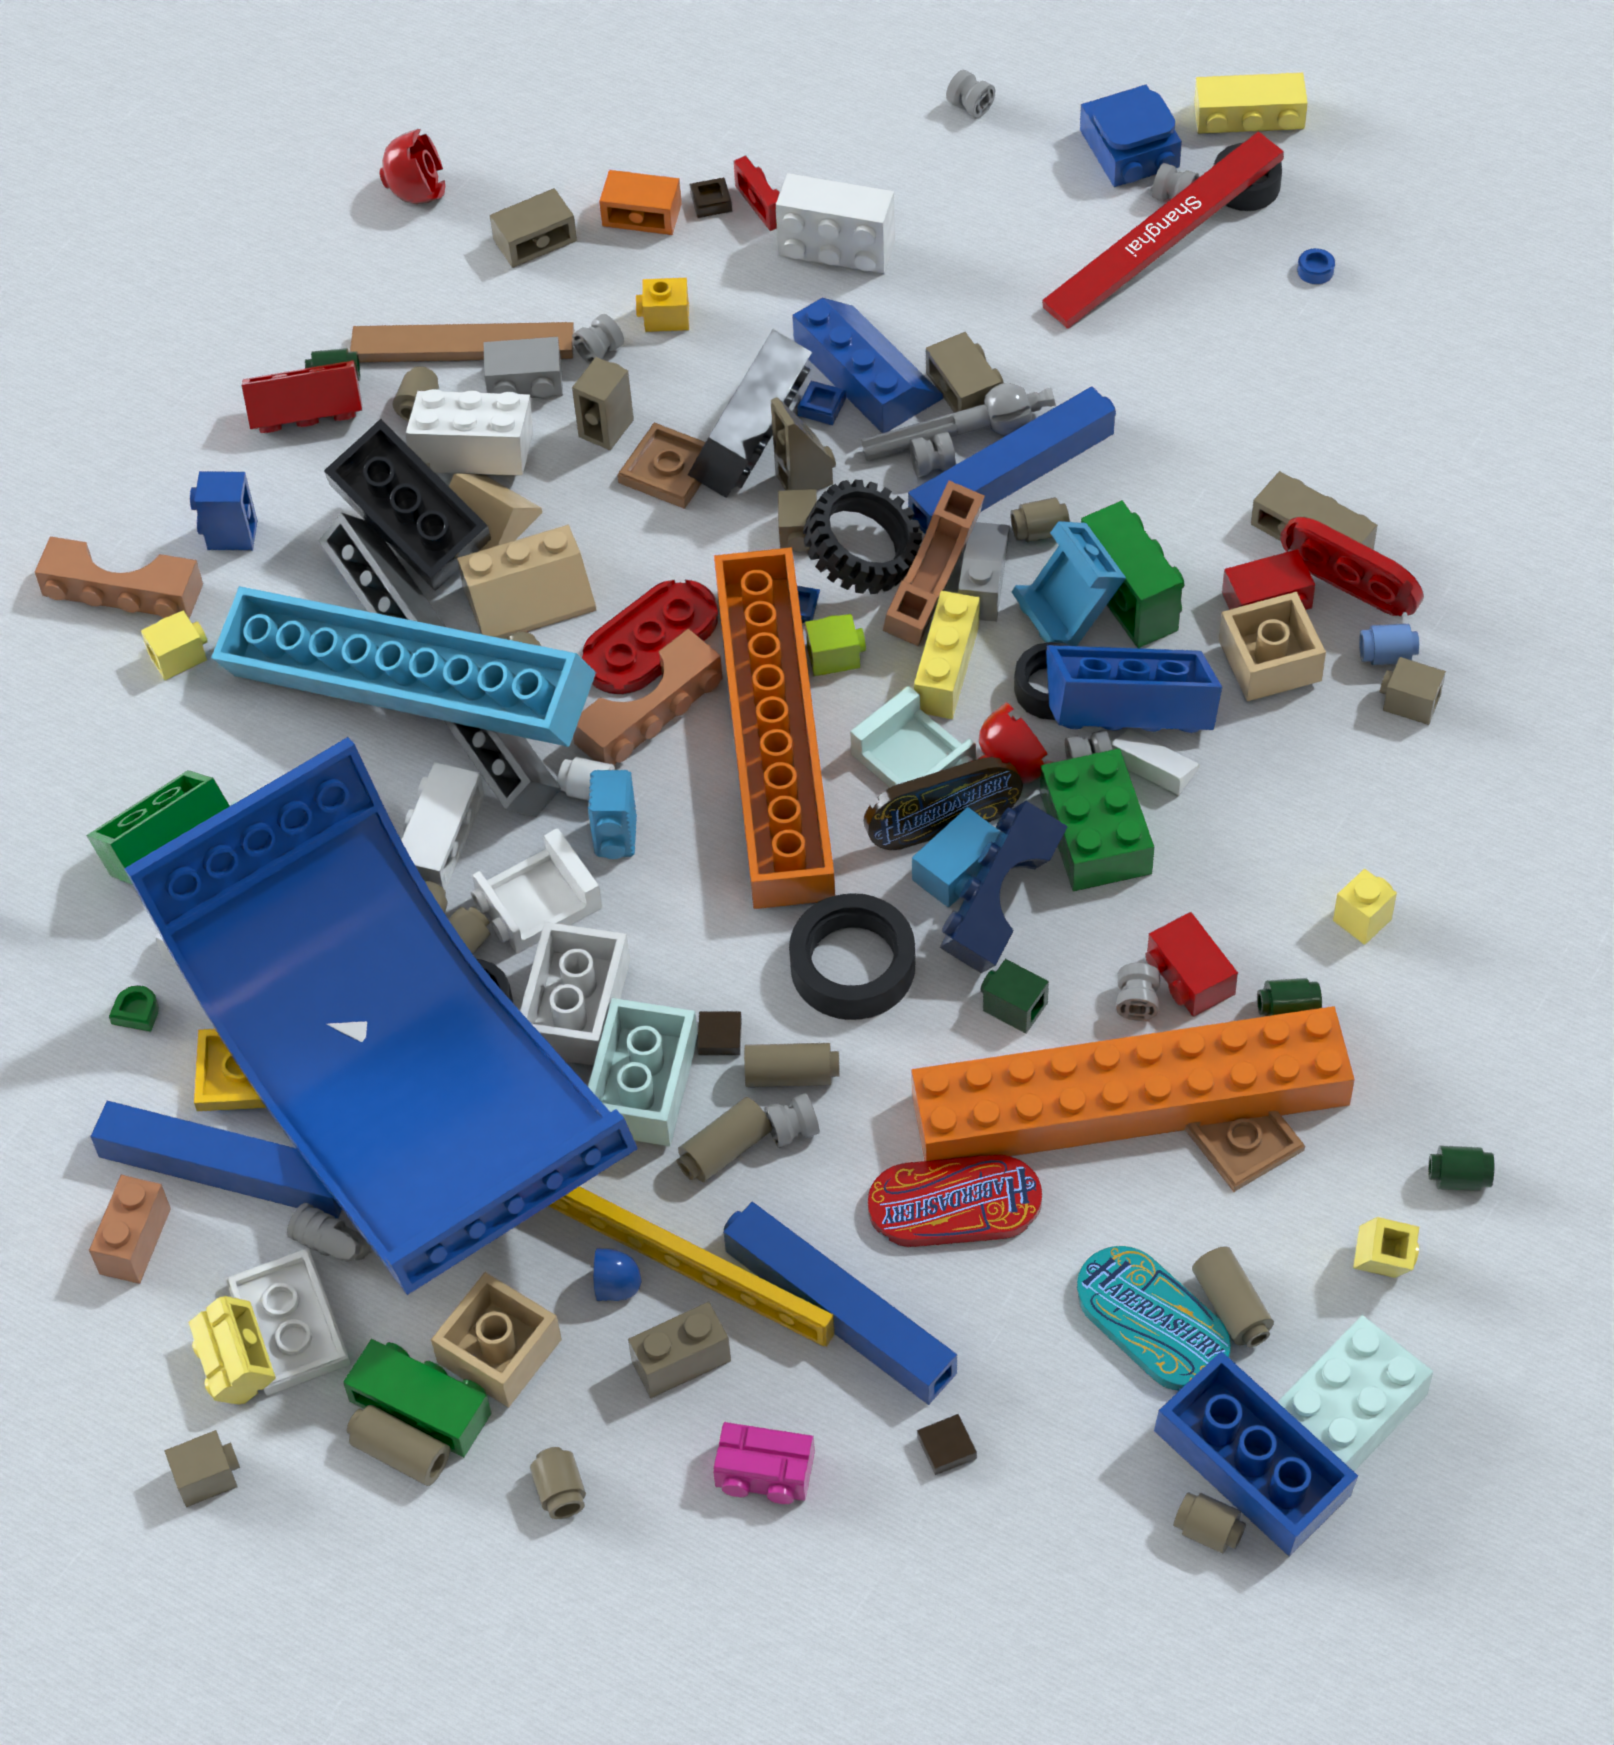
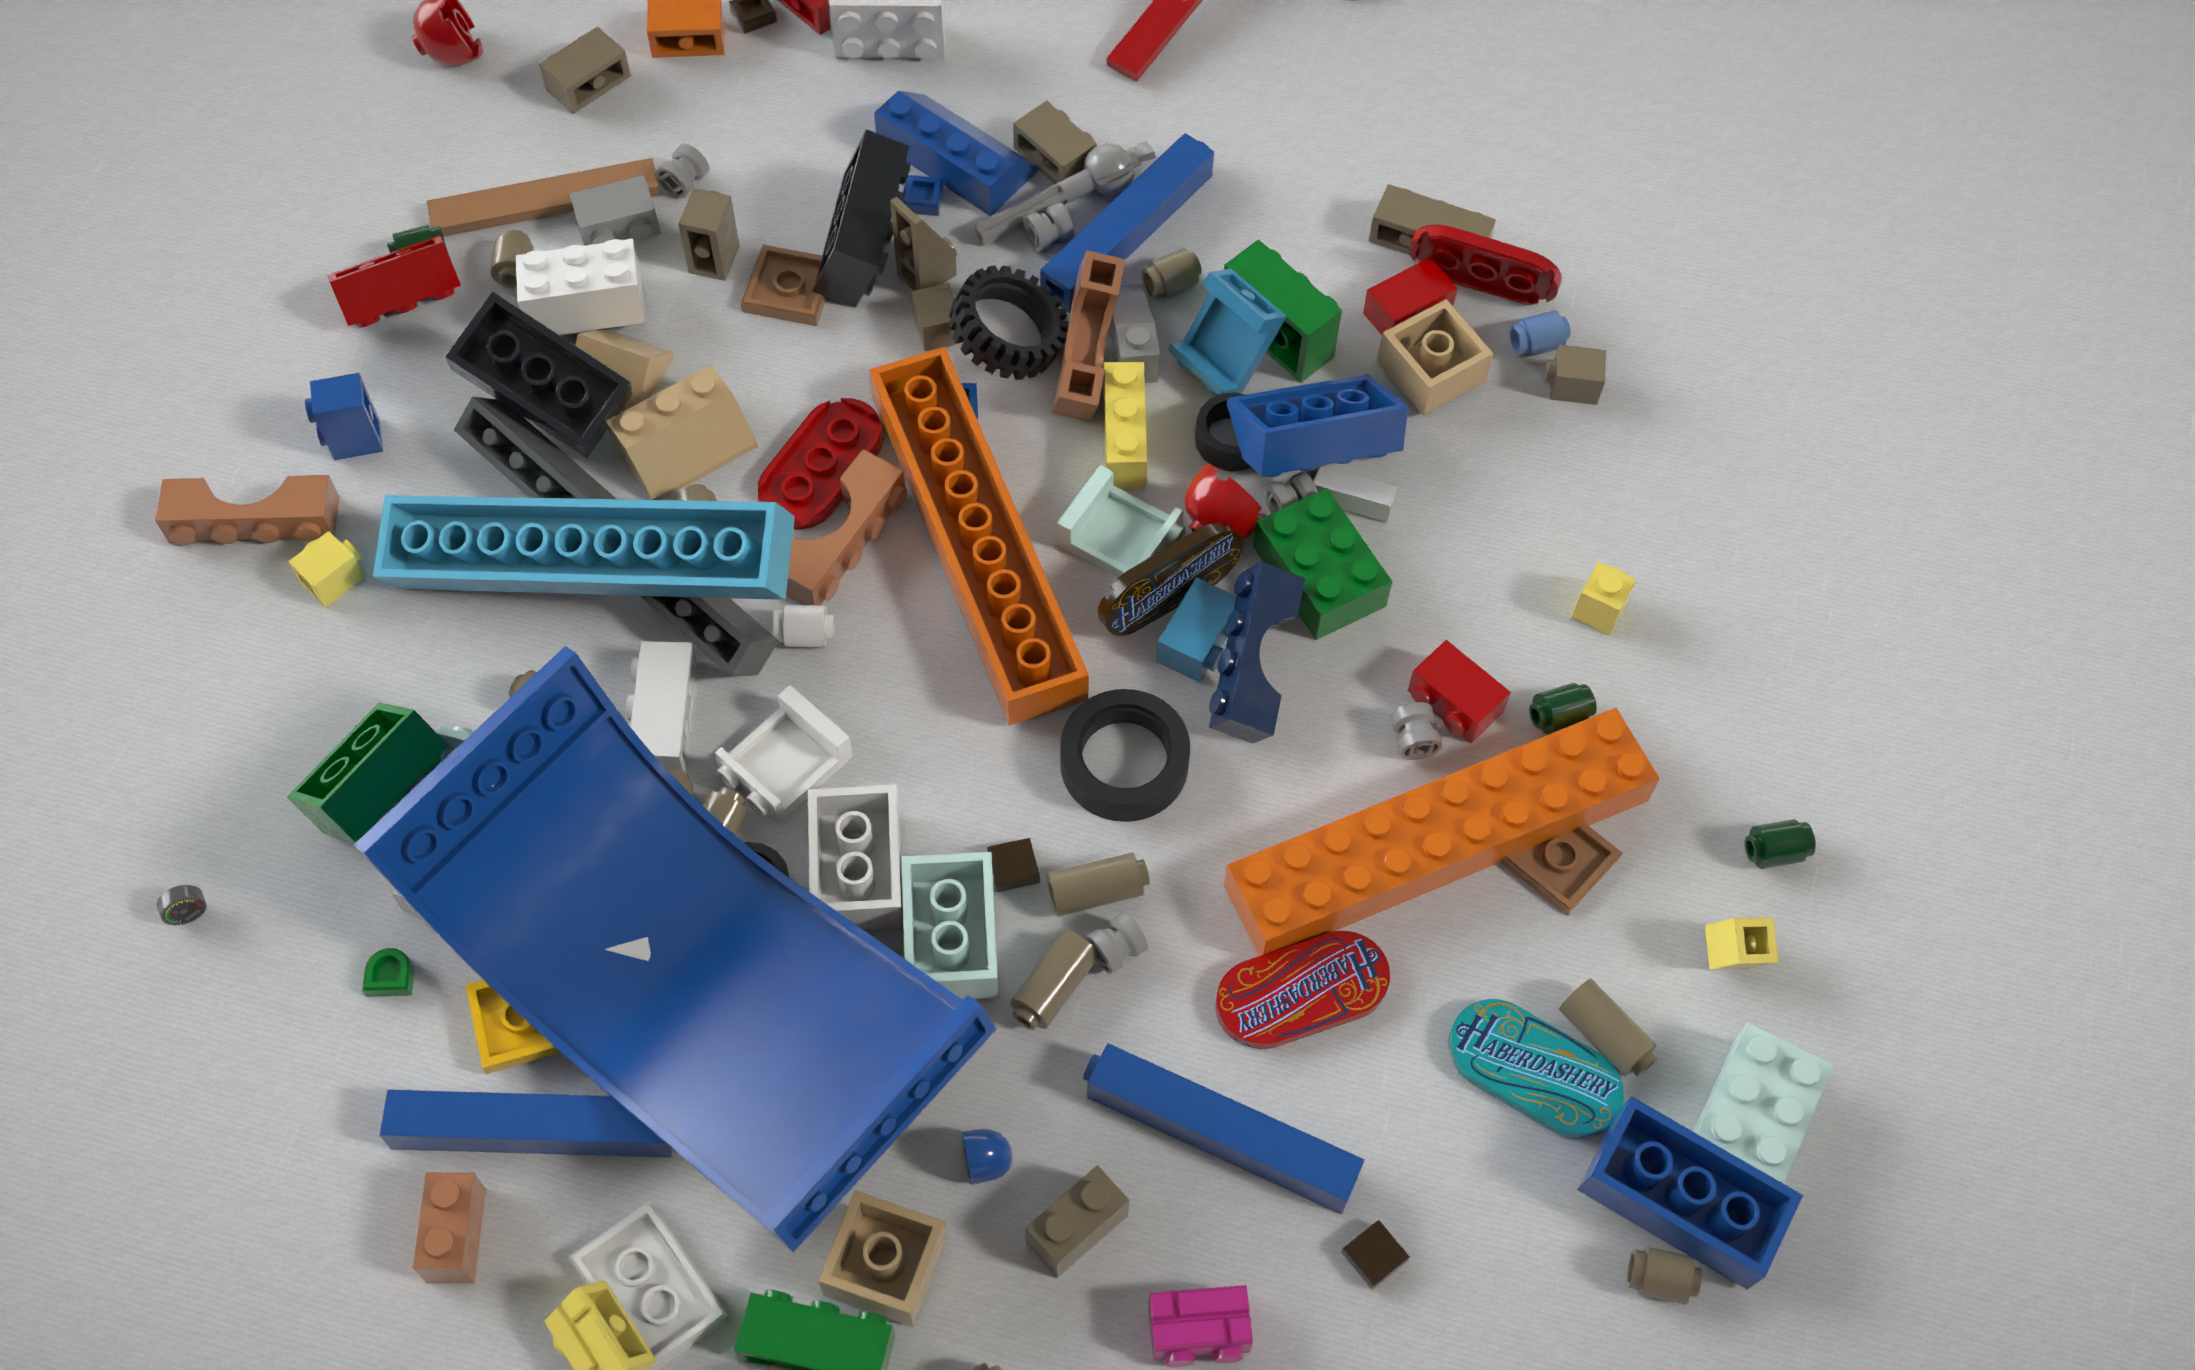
camera: 20 degrees left, 5 degrees up
(326, 1234) = (666, 1181): light grey hinge -> none
(612, 813) = (842, 657): dark azure brick -> none
(664, 304) = (739, 124): yellow brick -> none
(698, 1264) = (1083, 1126): yellow tile -> none
(834, 644) = (1011, 435): lime brick -> none
(1014, 995) = (1297, 761): dark green brick -> none

